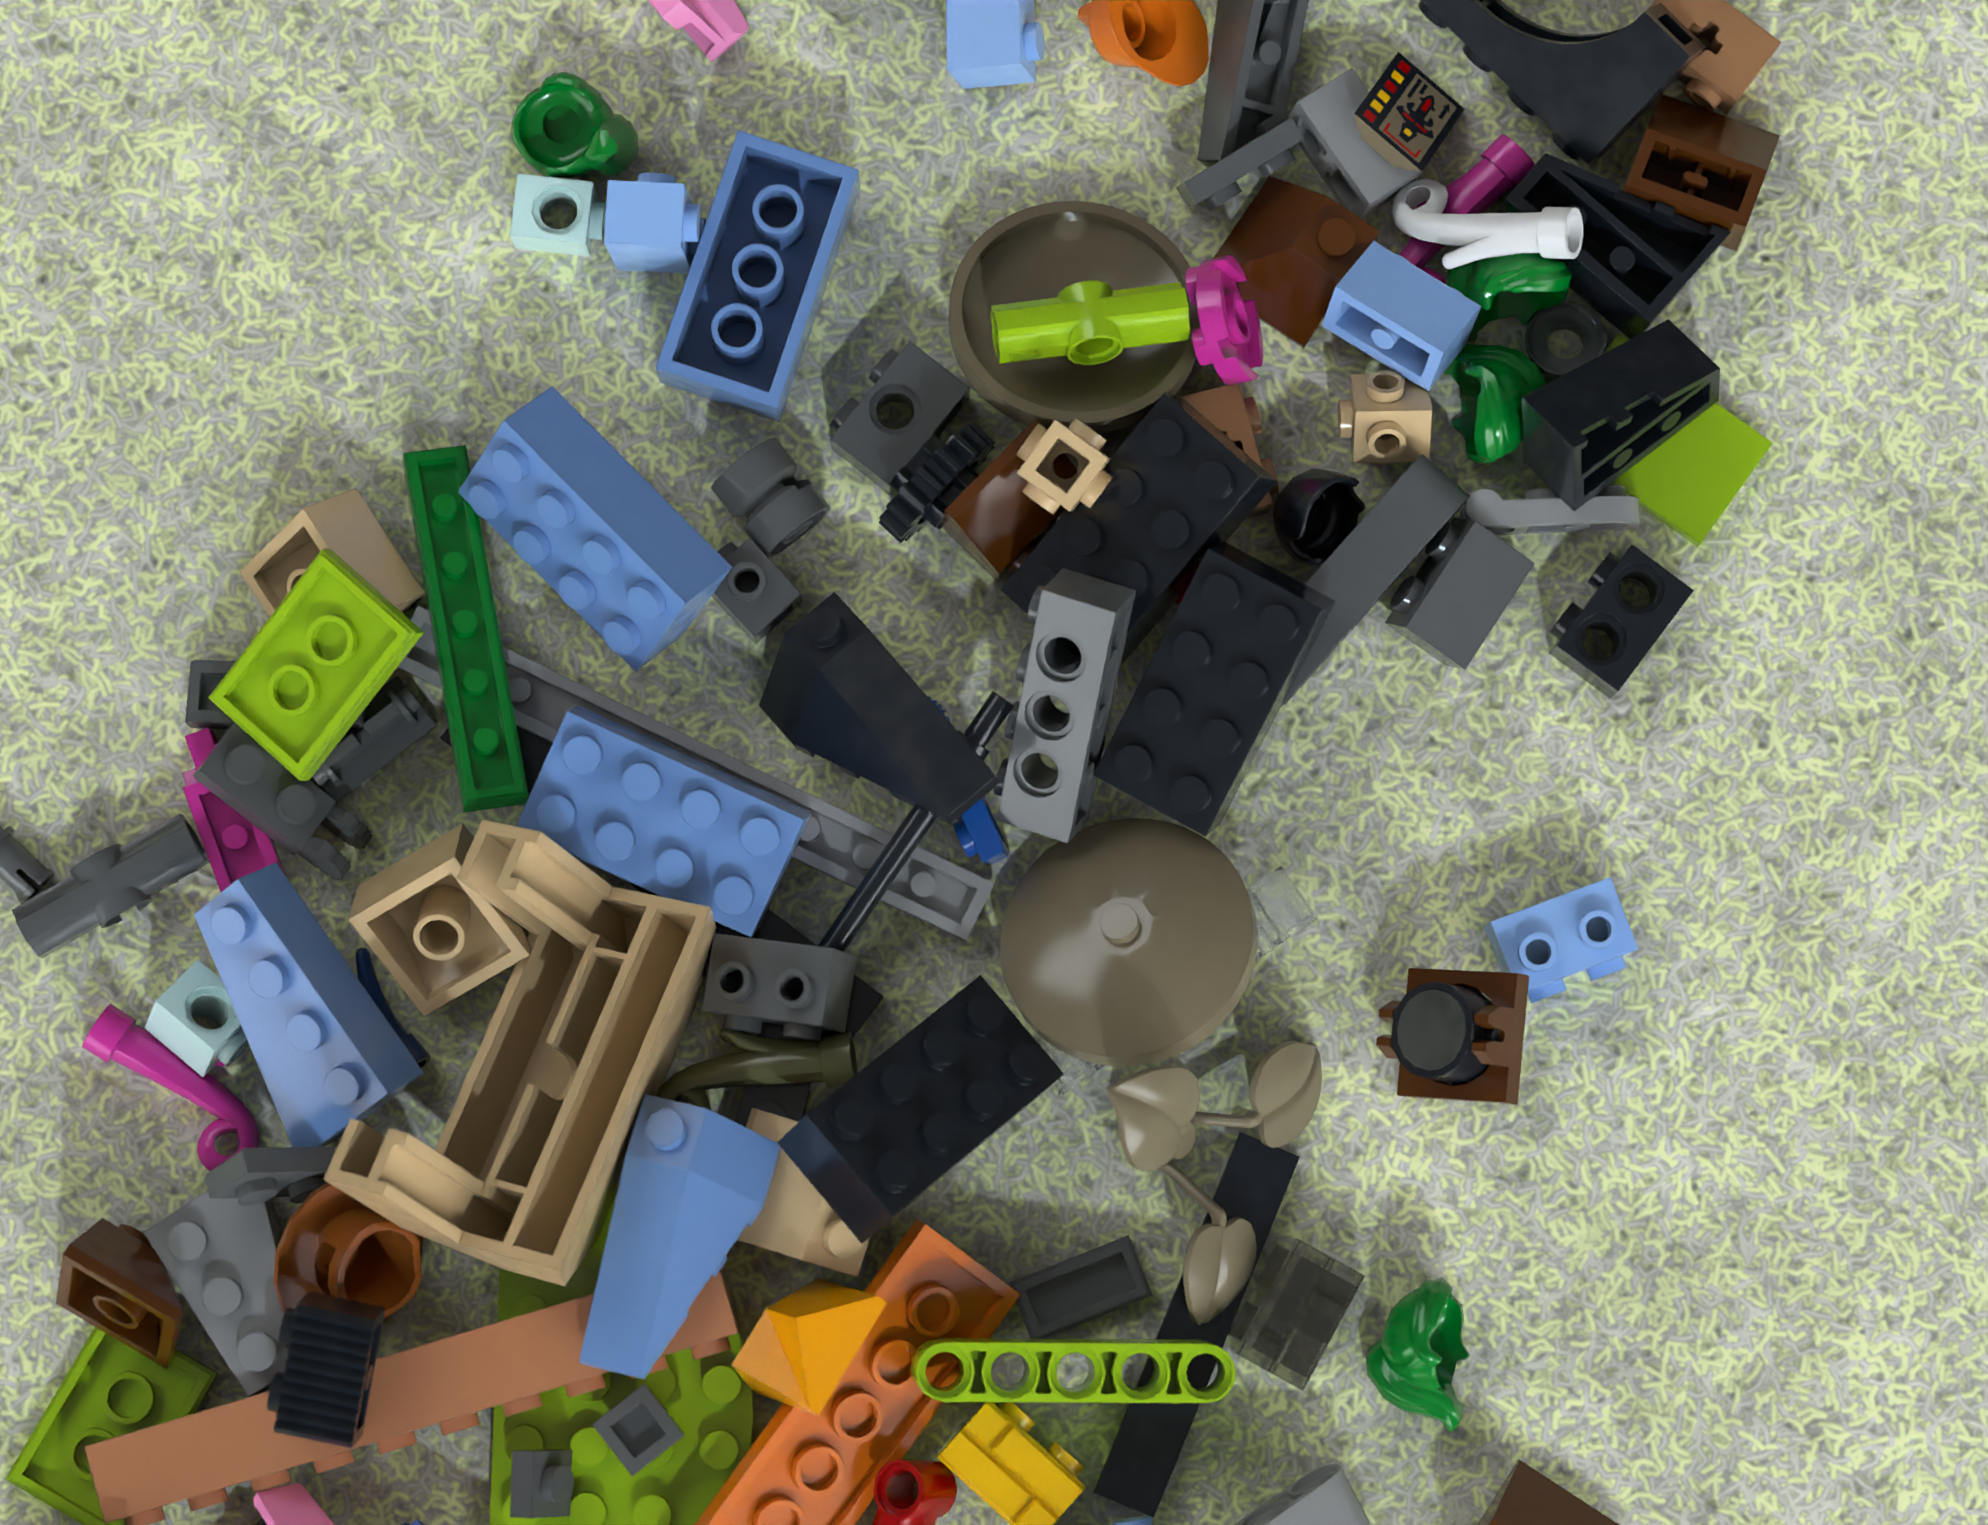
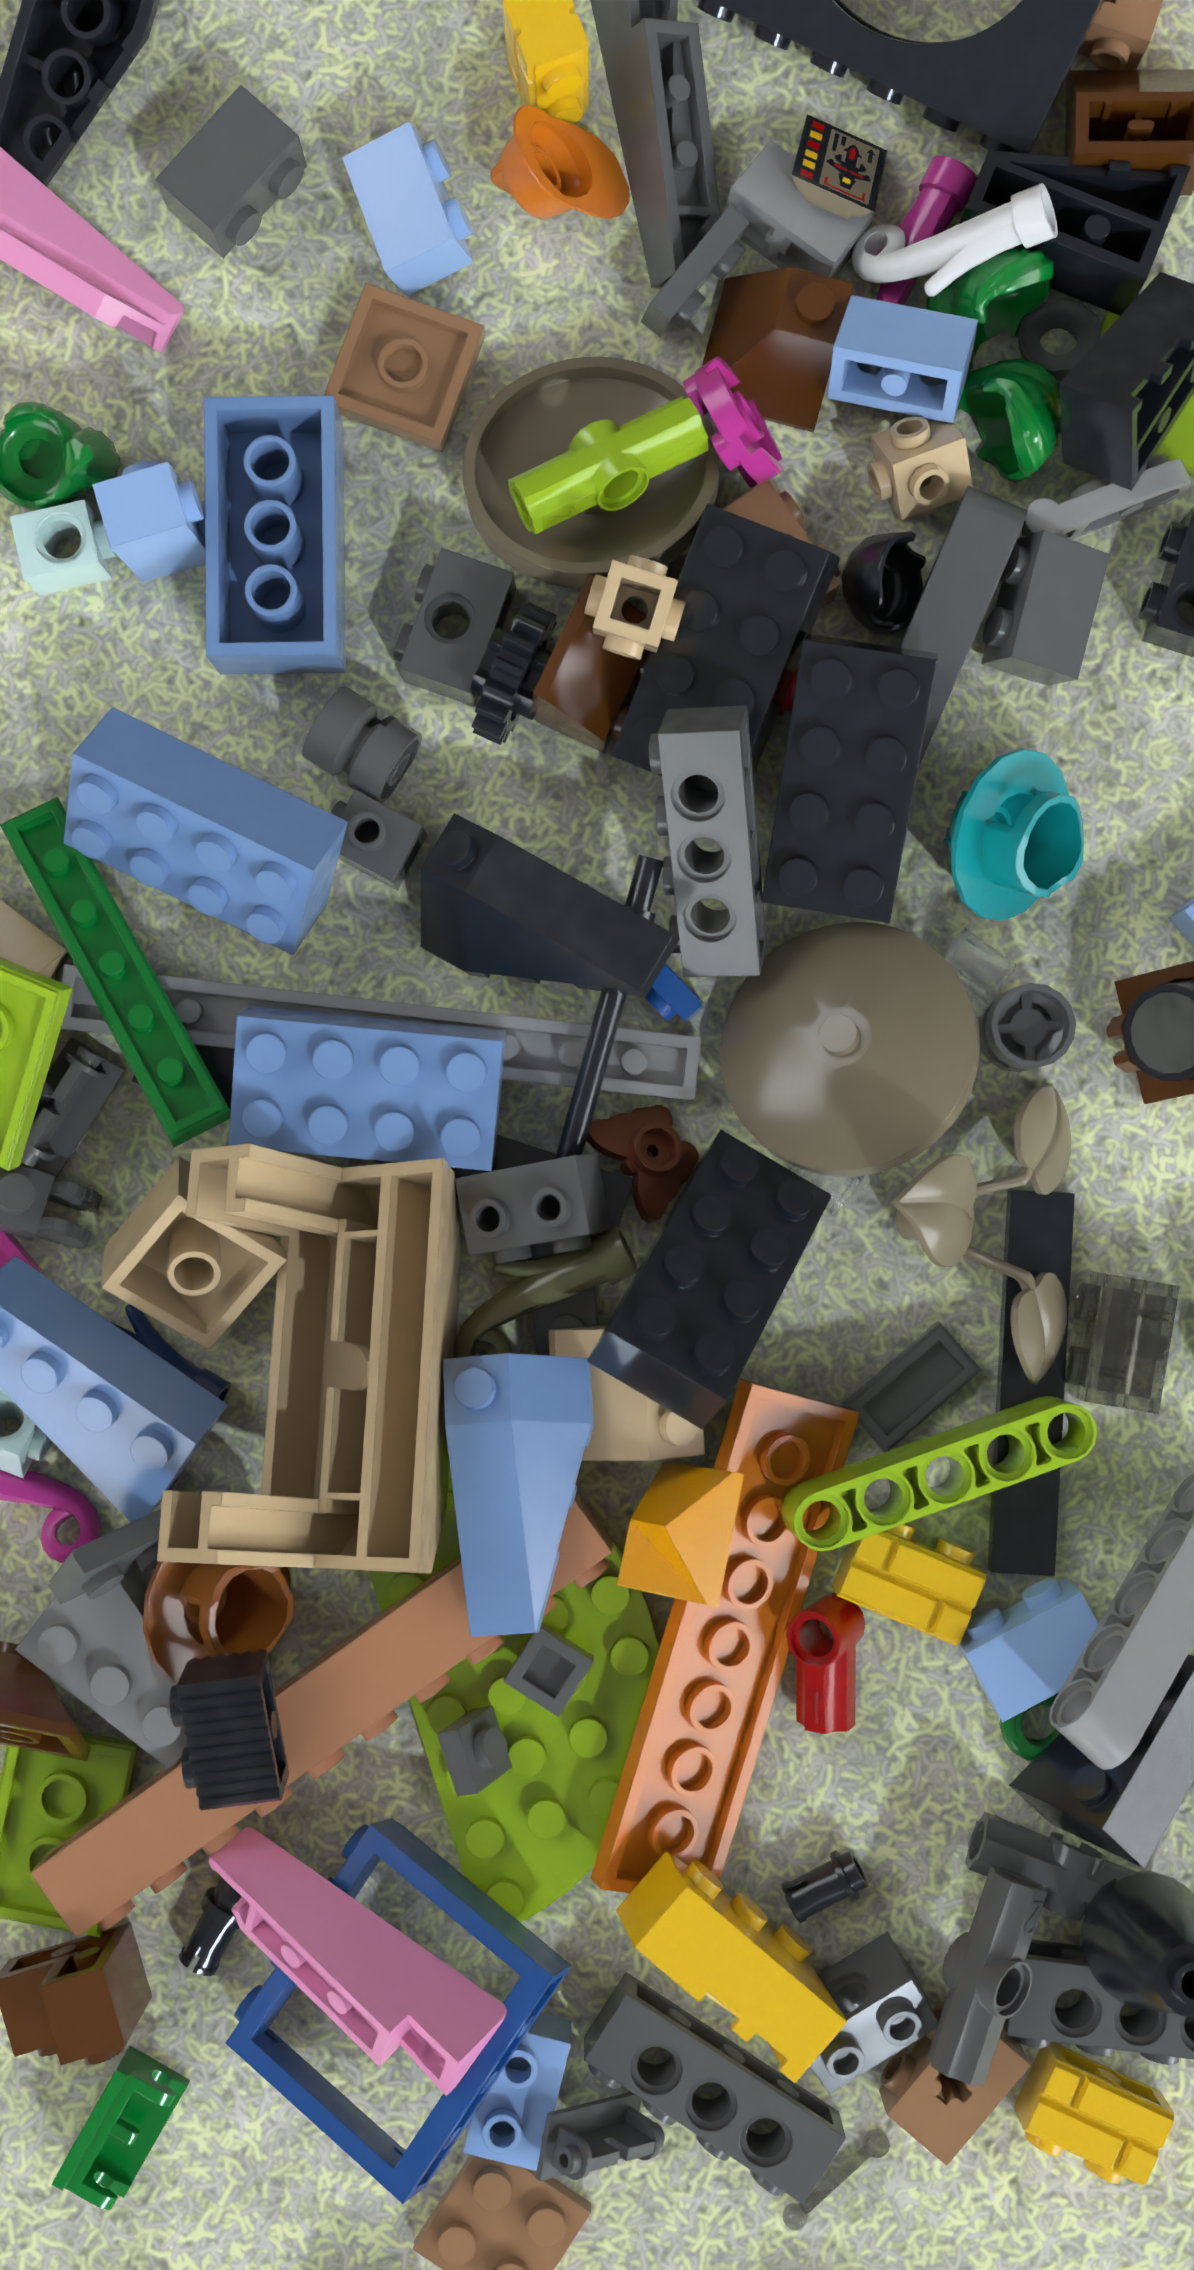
camera: 15 degrees left, 5 degrees up
(903, 1001) = (655, 1177): none -> copper animal
(936, 157) = (404, 366): none -> medium nougat plate
(1304, 981) = (1026, 1028): none -> dark grey wheel
(1360, 819) = (1014, 835): none -> teal helmet

